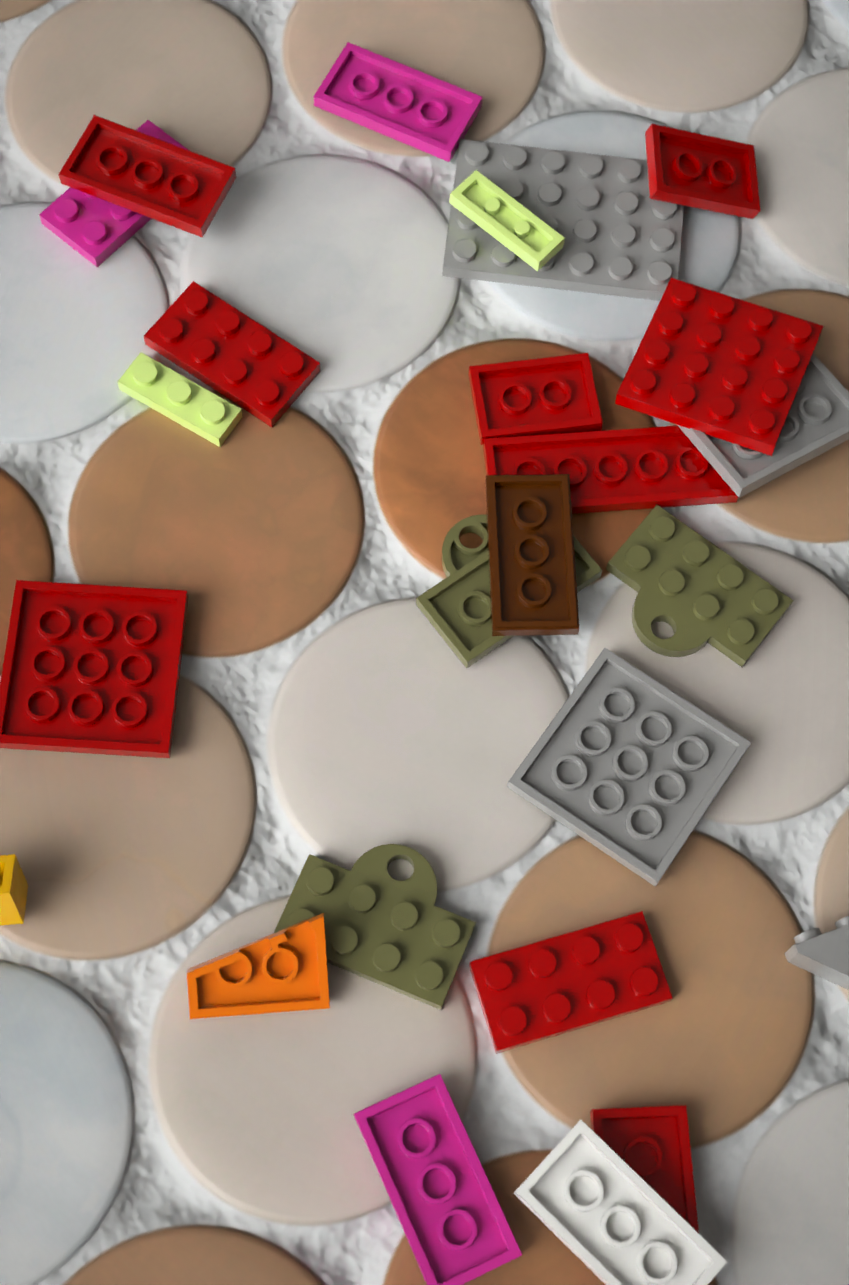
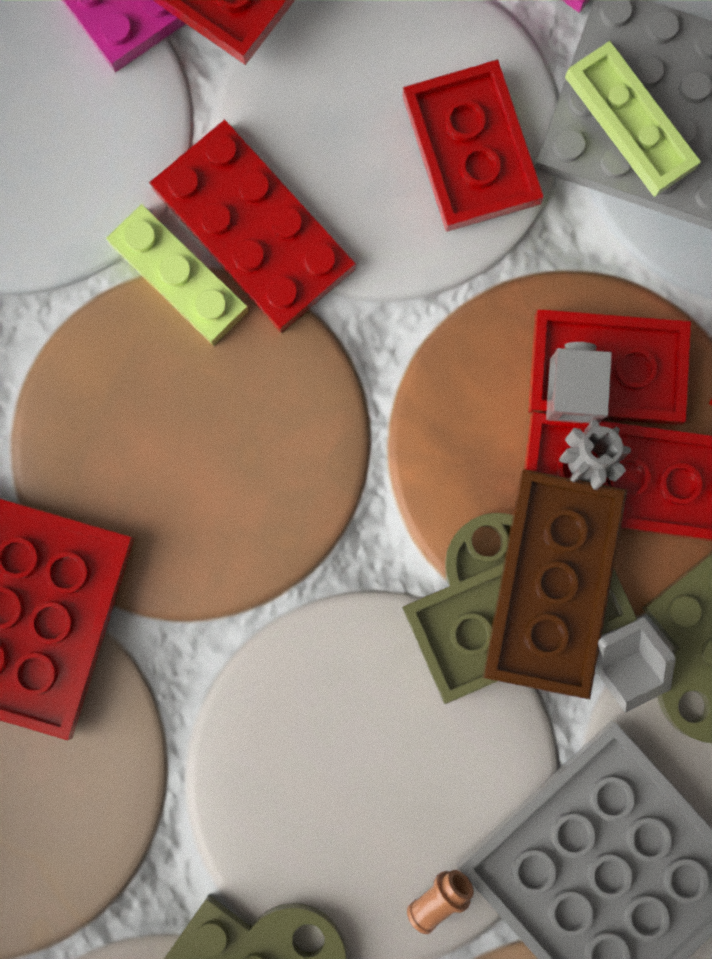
camera: 20 degrees right, 15 degrees up
(390, 265) = (472, 145): none -> red plate
(500, 809) = (448, 895): none -> nougat pin
(513, 407) = (578, 384): none -> light grey brick
(537, 451) = (605, 444): none -> light grey gear
(608, 598) = (635, 664): none -> light grey panel

